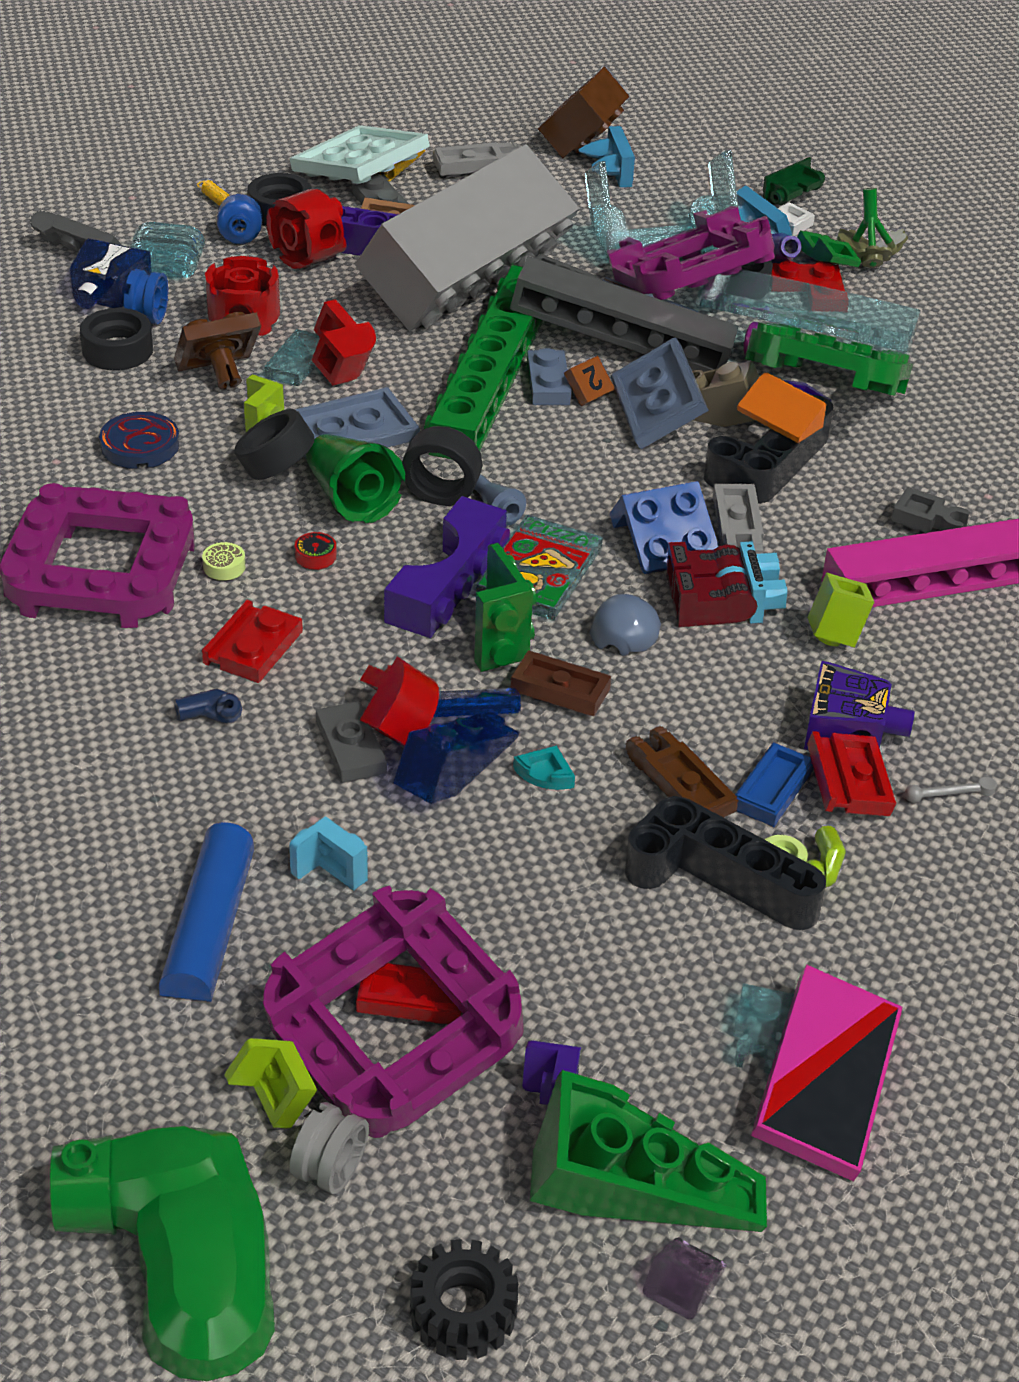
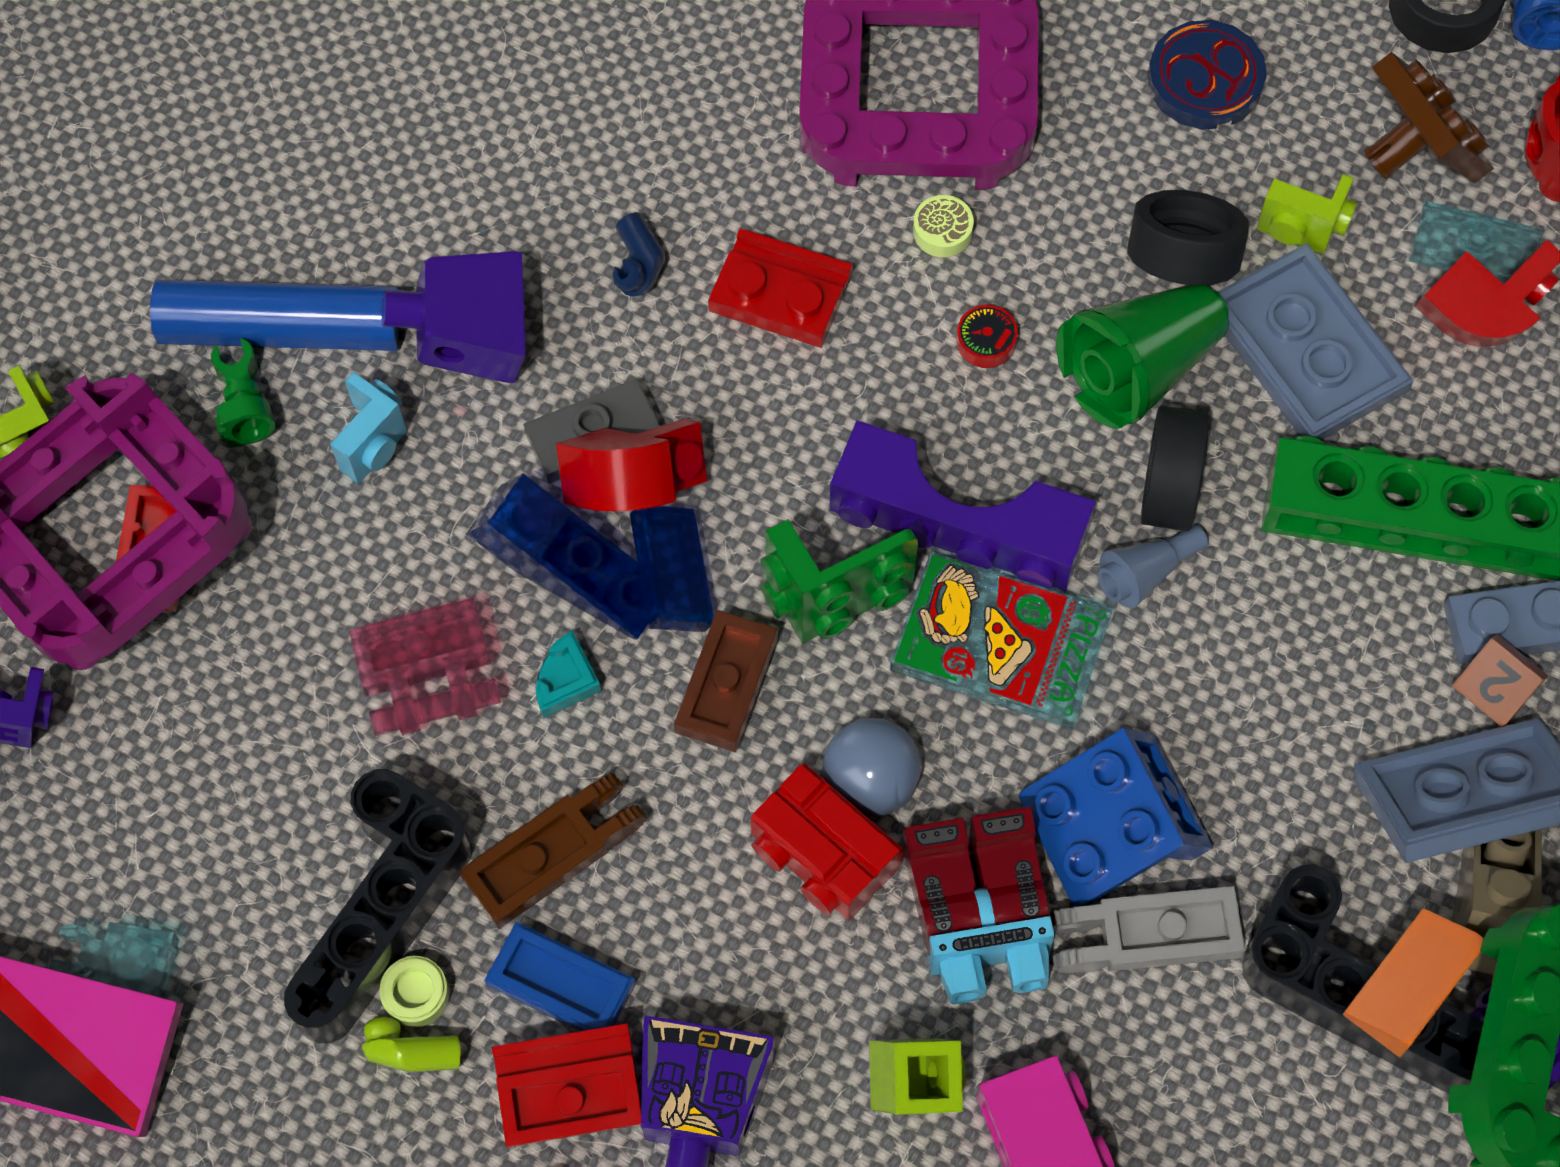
camera: 90 degrees right, 25 degrees up
(248, 783) = (465, 314): none -> dark purple torso
(263, 939) = (245, 413): none -> green piece
(521, 836) = (421, 649): none -> clear pink plate
(681, 644) = (824, 843): none -> red brick

